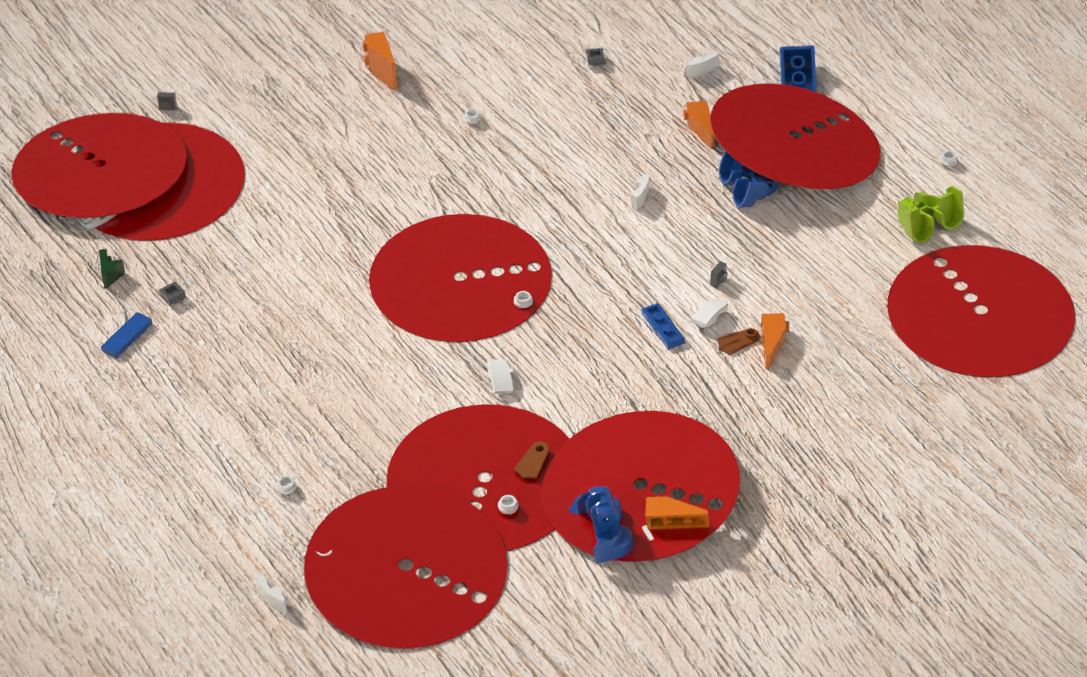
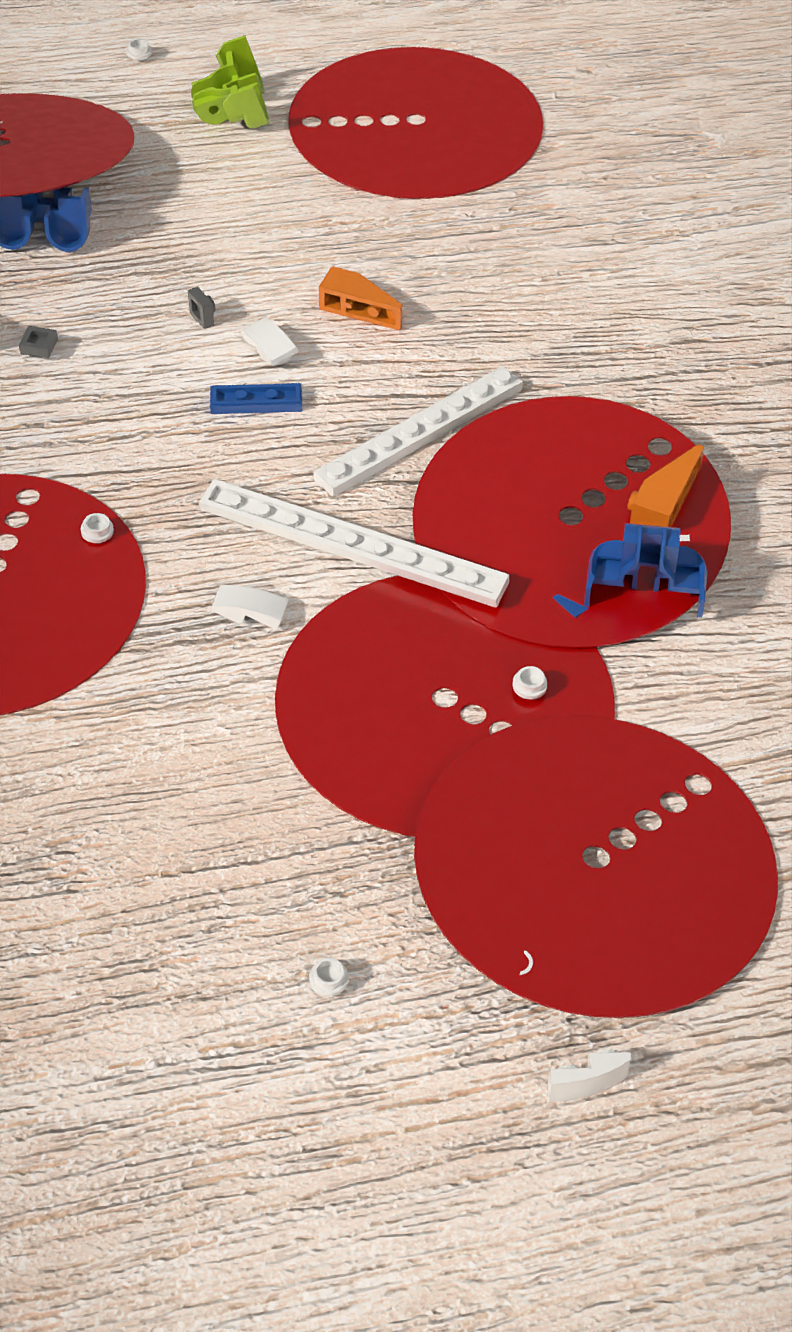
camera: 70 degrees left, 5 degrees up
(532, 461) = (451, 626): dark orange piece -> none
(567, 401) = (355, 542): none -> white plate
(647, 222) = (38, 342): none -> dark grey plate
(681, 403) = (417, 431): none -> white plate
(738, 340) = (332, 338): dark orange piece -> none

